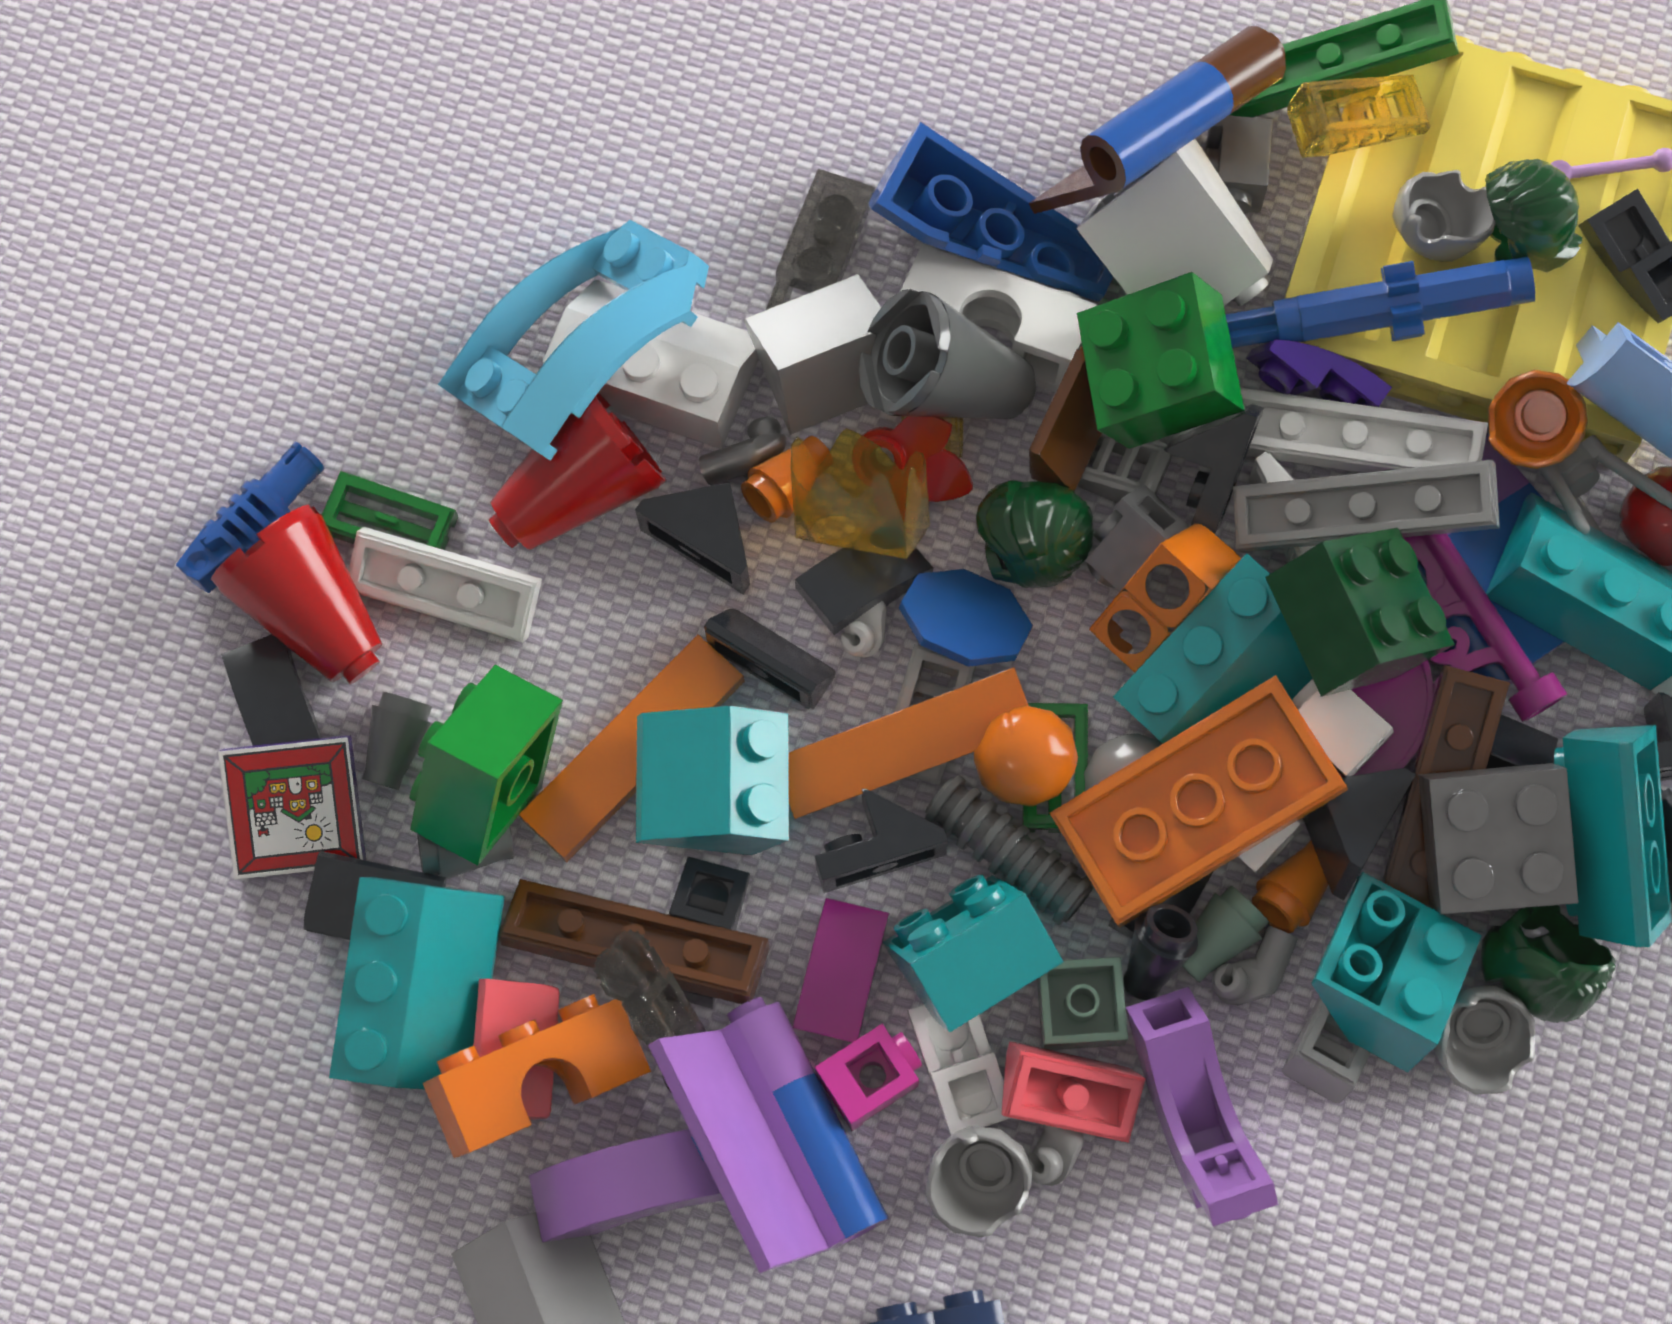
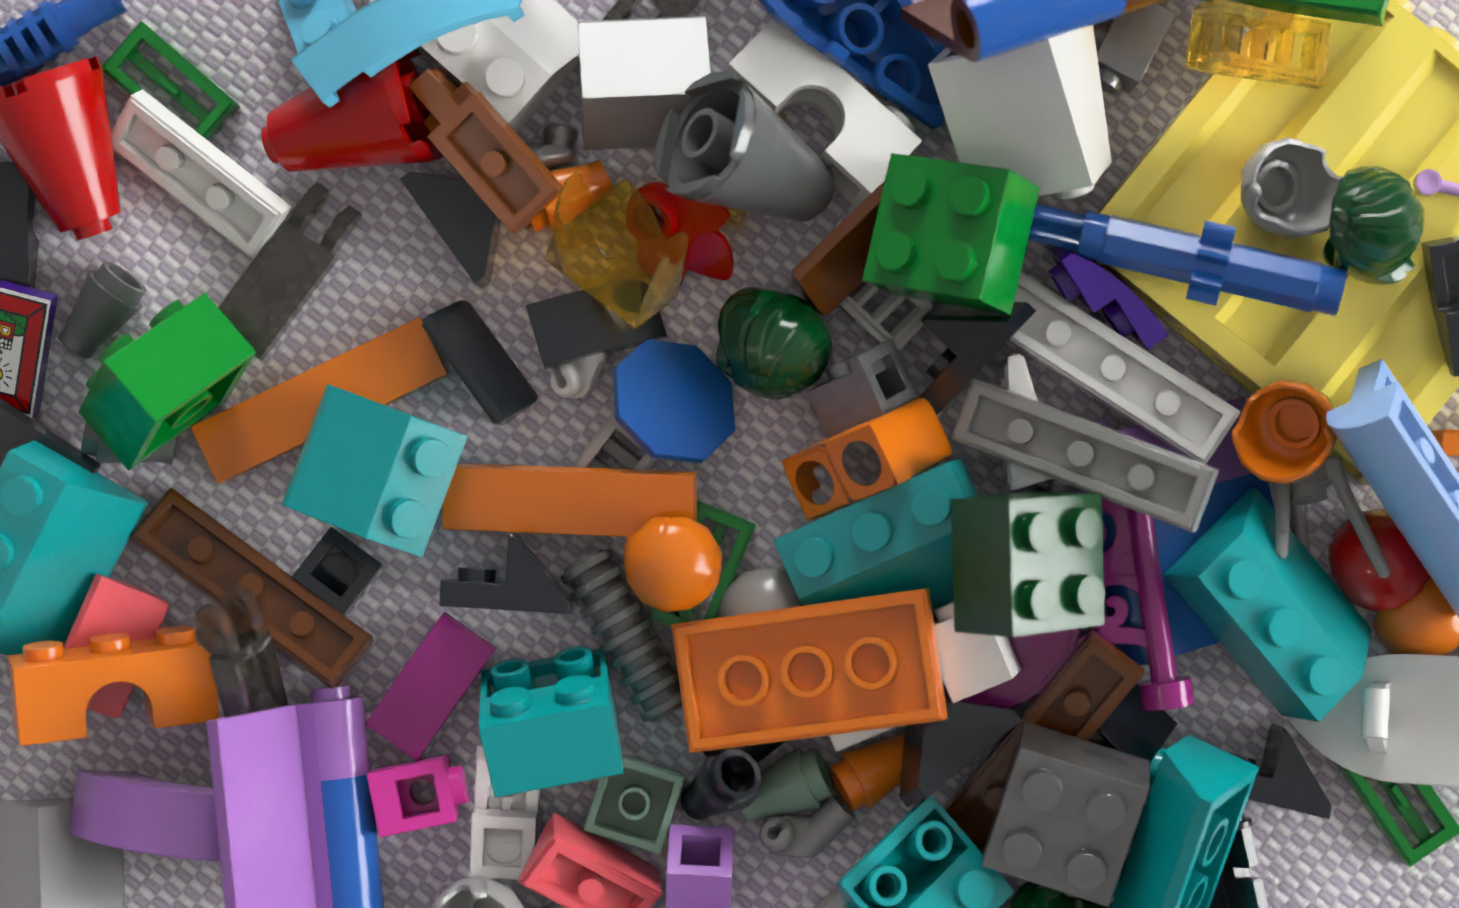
camera: 20 degrees right, 15 degrees up
(561, 633) = (286, 273): none -> clear smoke hinge
(708, 451) = (485, 150): none -> dark orange hinge

